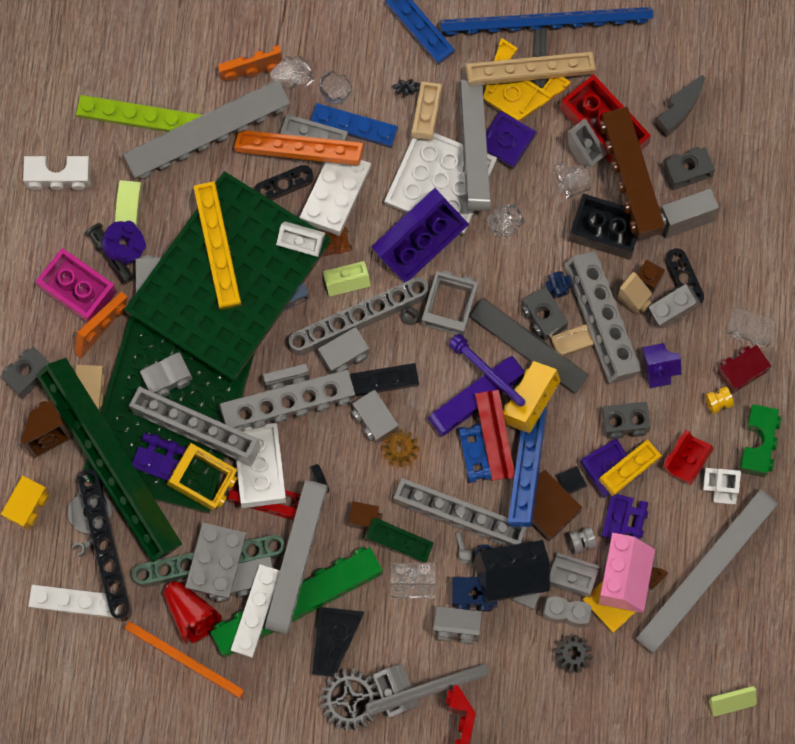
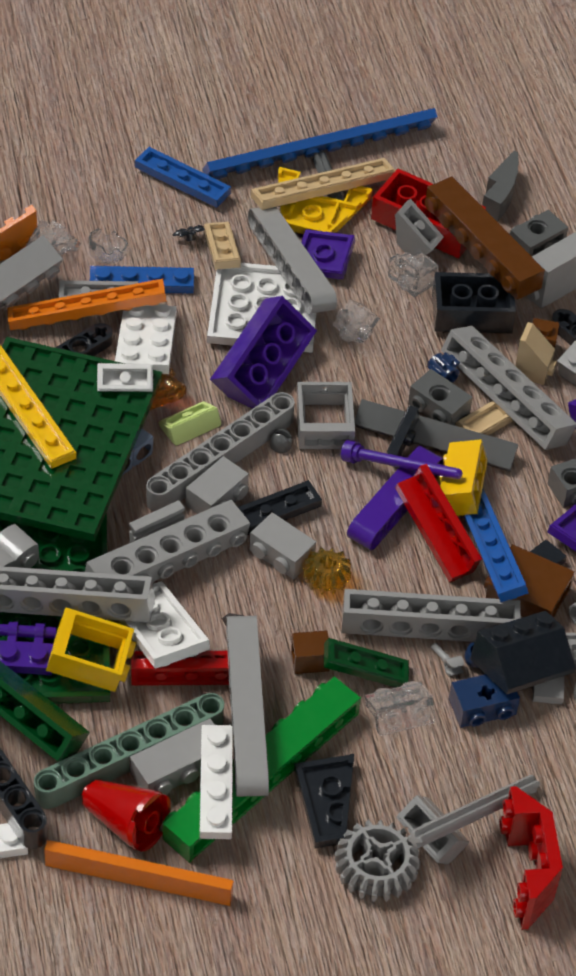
camera: 25 degrees left, 25 degrees down
(216, 560) = (142, 738): light grey plate -> none
(457, 625) = (479, 737): light grey slope -> none
(474, 453) = (418, 557): blue plate -> none
(501, 344) = (405, 433): none -> black plate

